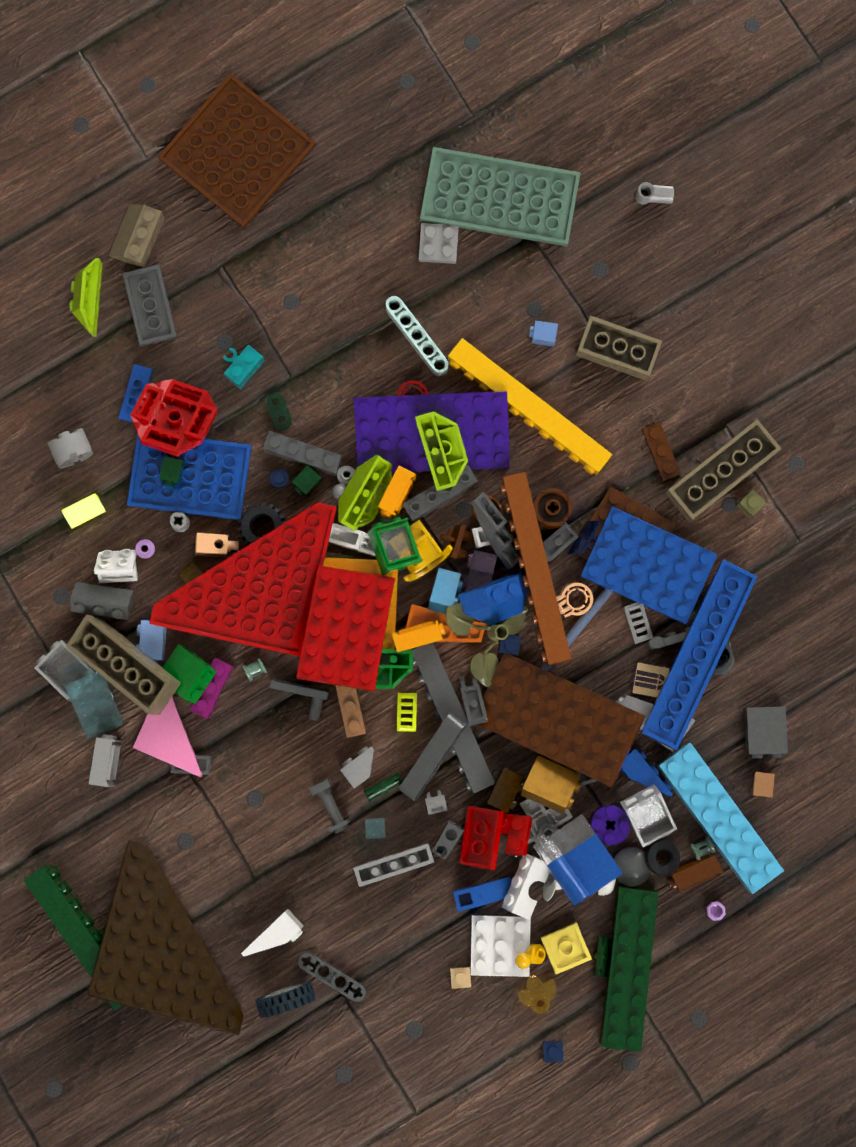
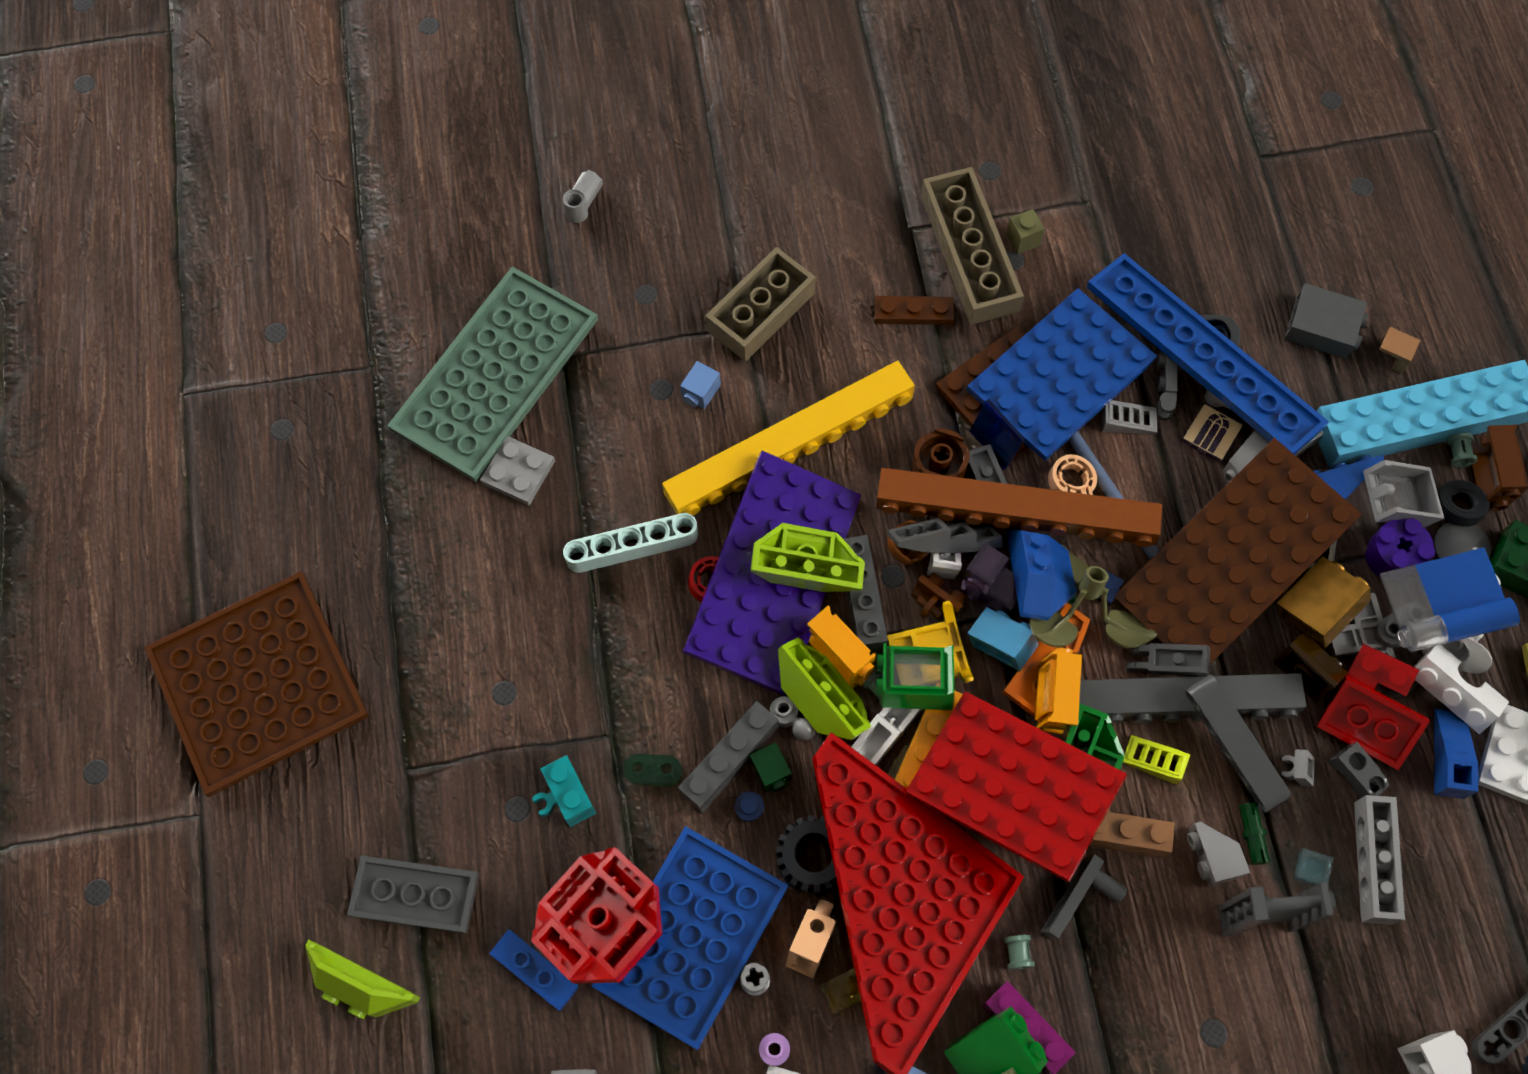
camera: 65 degrees left, 15 degrees down
(137, 235) = (300, 872): dark tan slope -> none
(171, 471) = (677, 956): dark green brick -> none

